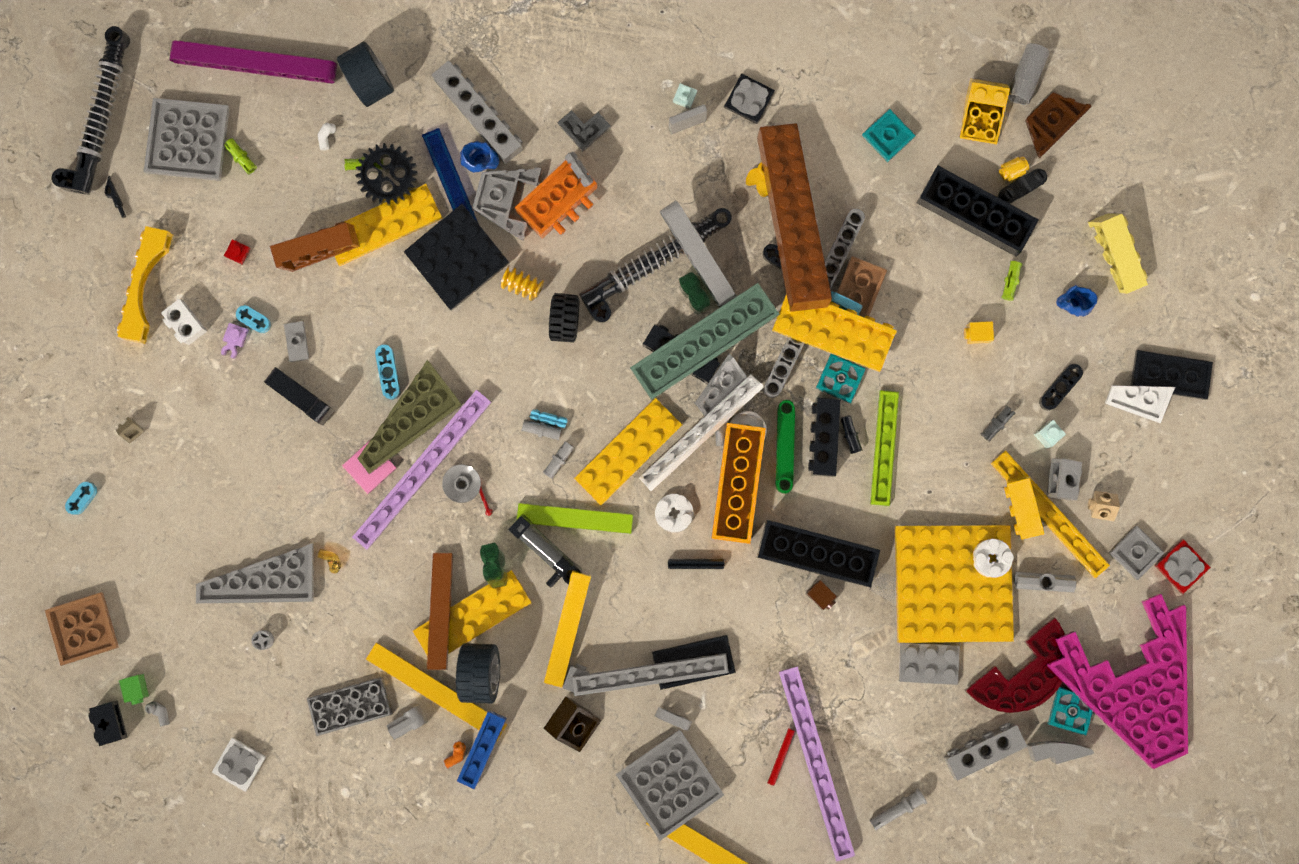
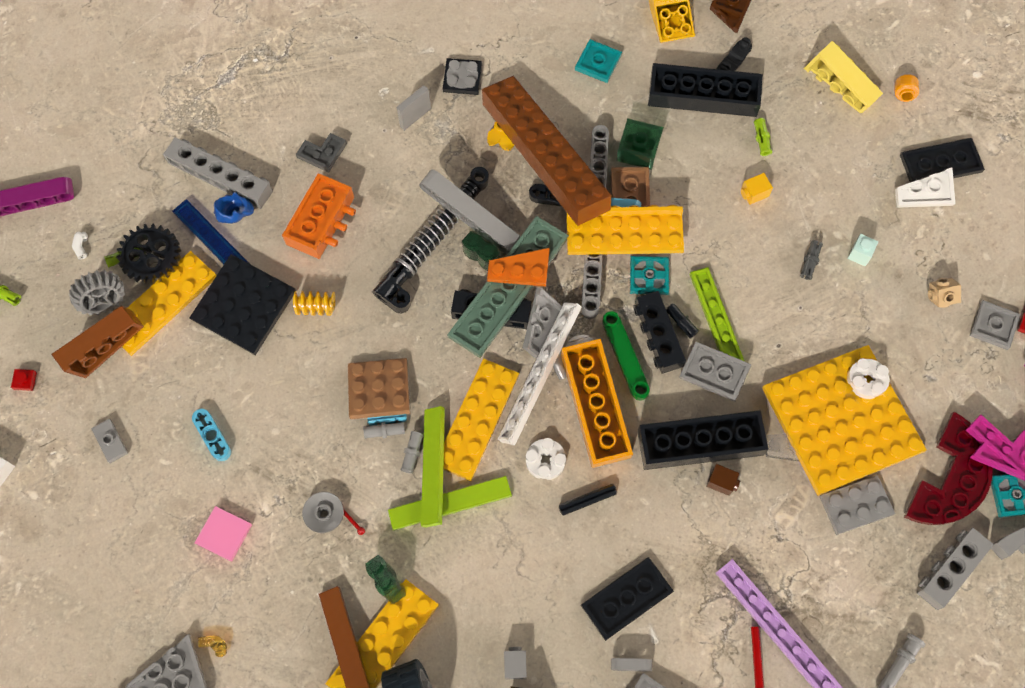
camera: 20 degrees left, 15 degrees down
(234, 337) = (44, 460): lavender plate -> none
(255, 315) = (59, 432): medium azure beam -> none
(299, 396) = (141, 494): black beam -> none
(327, 197) = (96, 292): none -> light grey gear
(365, 74) = (99, 173): black wheel -> none
(416, 412) = (251, 463): olive wing -> none
(421, 469) = (276, 517): lavender plate -> none
(496, 197) = (262, 238): light grey wing -> none
(544, 549) = (432, 543): piece -> none
(550, 389) = (378, 388): none -> medium nougat plate
(564, 317) = (366, 315): black tyre -> none
(567, 629) = (485, 615): yellow tile -> none
(572, 481) = (433, 467): none -> lime tile
(579, 169) = (330, 179): light grey axle -> none
(650, 674) = (587, 627): light grey tile -> none
(685, 96) = (402, 92): light aqua tile -> none
(721, 331) = (521, 269): none -> orange wing
(858, 495) = (715, 371): none -> light grey plate
(888, 243) = (639, 143): none -> clear green brick
(1014, 168) = (719, 47): yellow brick -> none
(1024, 508) = (874, 322): yellow brick -> none
(1055, 401) = (847, 214): black beam -> none
(1055, 519) = (900, 322): yellow tile -> none
(1057, 583) = (937, 380): light grey piece -> none
(1064, 479) = (896, 283): light grey brick -> none
(1077, 301) = (829, 129): blue hair -> none
(1176, 286) = (906, 88): none -> light orange head

